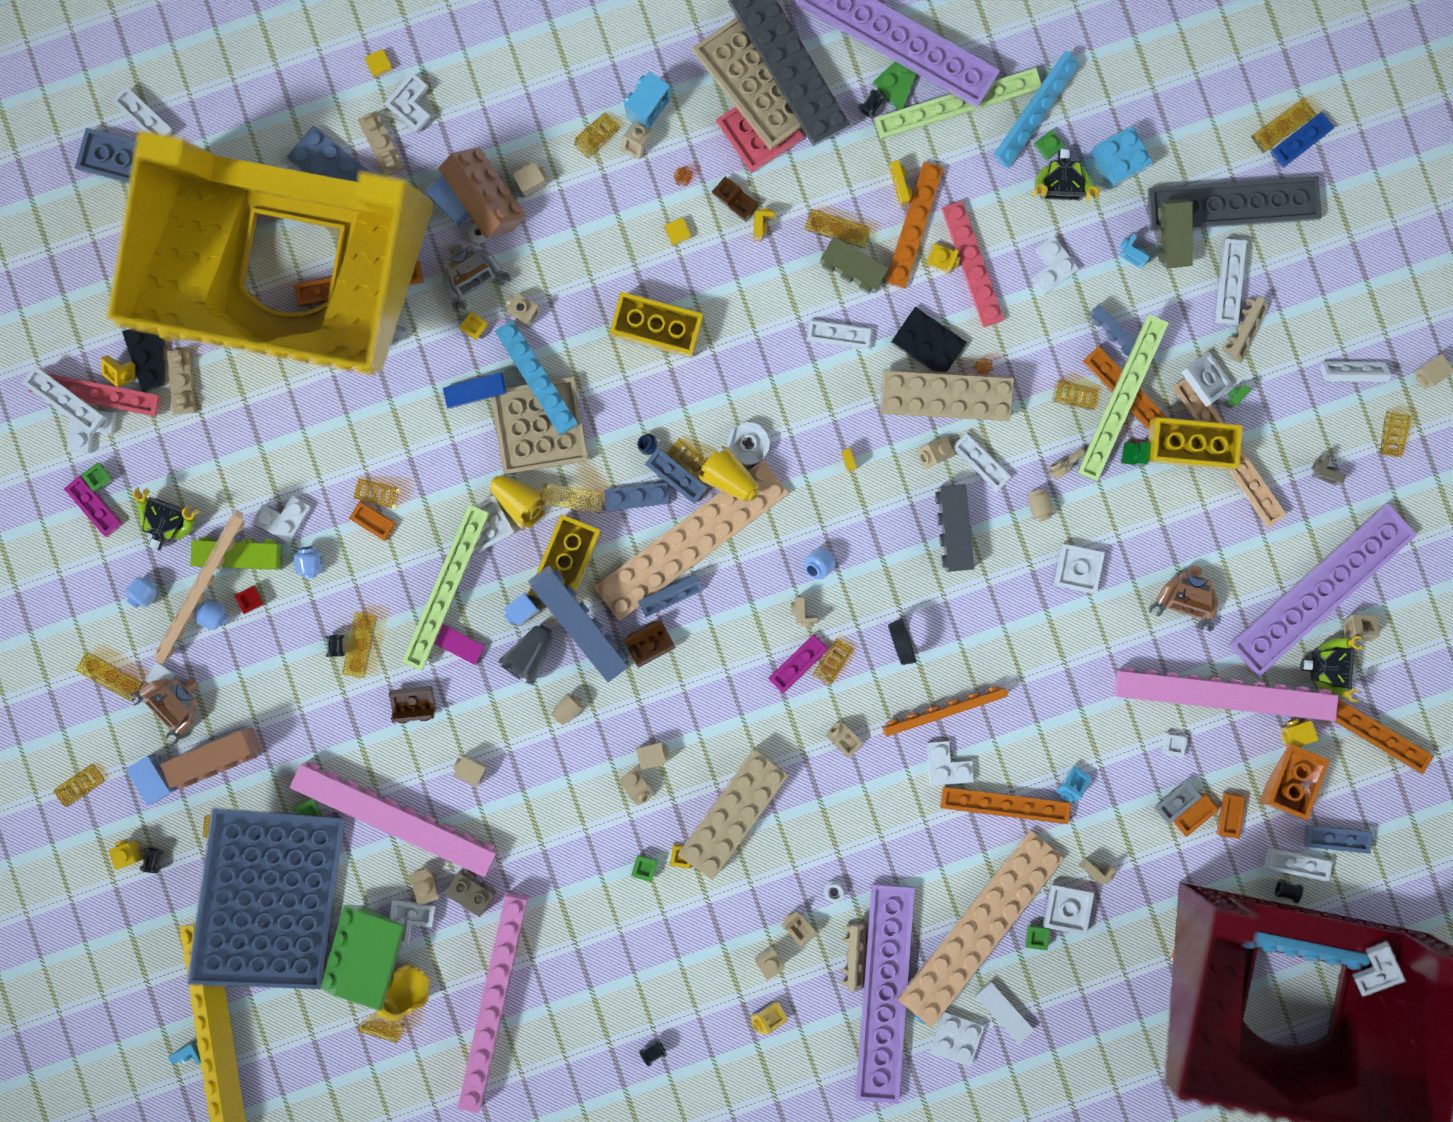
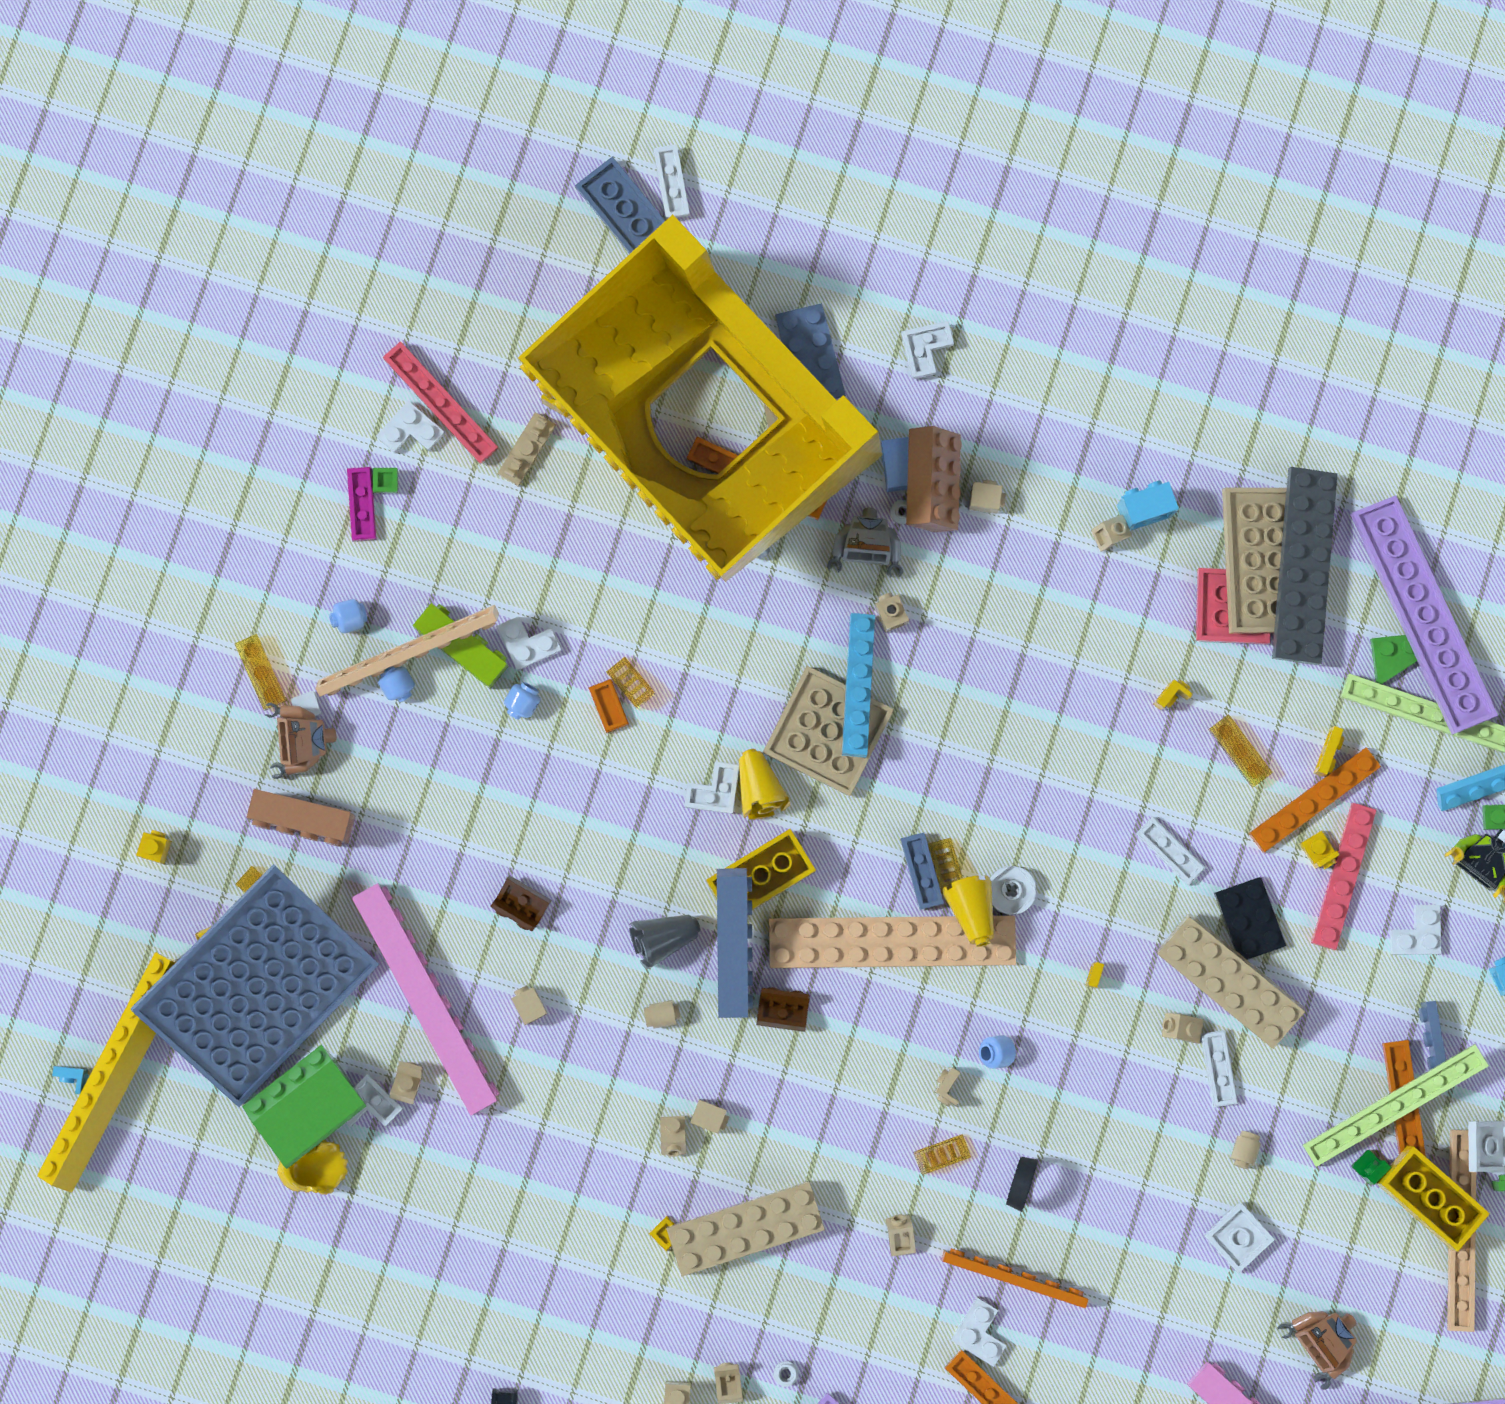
camera: 30 degrees right, 5 degrees down
(63, 400) = (409, 389): white plate -> none
(64, 797) = (136, 747): clear yellow slope -> none
(117, 373) = (474, 397): yellow bracket -> none
(147, 355) = (512, 404): black wing -> none
(150, 779) = (229, 795): light blue brick -> none
(151, 860) = (172, 870): black bush -> none
(163, 519) = (418, 564): torso -> none
(249, 600) = (441, 695): red plate -> none
(307, 807) = (353, 927): bright green plate -> none
(335, 645) = (489, 796): black bush -> none
(359, 644) = (512, 812): clear yellow plate -> none
(378, 63) = (922, 290): yellow tile -> none
(381, 143) = (871, 365): tan plate -> none
(385, 1030) = (271, 1191): clear yellow slope -> none
(445, 587) = (632, 818): yellowish green plate -> none
(459, 644) = (600, 871): dark pink tile -> none
(470, 892) = (445, 1120): dark tan brick -> none
(473, 326) = (834, 594): yellow plate -> none
(474, 390) = (792, 655): blue tile -> none
(493, 1002) = (390, 1240): bright pink brick -> none
(521, 610) = (688, 891): light blue brick -> none
(572, 498) = (810, 821): clear yellow plate -> none
(592, 146) = (1061, 510): clear yellow slope -> none
(636, 497) = (870, 863): sand blue plate -> none
(644, 868) = (624, 1218): bright green plate -> none
(647, 444) = (916, 822): dark blue plate -> none
(656, 325) = (1005, 717): yellow brick -> none
(670, 595) = (835, 979): sand blue plate -> none
(677, 231) = (1088, 644): yellow tile -> none
(683, 176) = (1130, 597): clear orange plate -> none
(735, 199) = (1164, 654): reddish brown slope -> none
(798, 663) = (908, 1131): dark pink tile -> none
(853, 265) = (1230, 796): olive brick -> none
(871, 104) = (1356, 658): black bush -> none
(955, 528) = (1149, 1112): dark grey brick -> none
(983, 366) = (1285, 979): clear orange plate -> none
(1057, 395) = (1338, 1056): clear yellow slope -> none
(1059, 468) = (1288, 1129): tan plate -> none

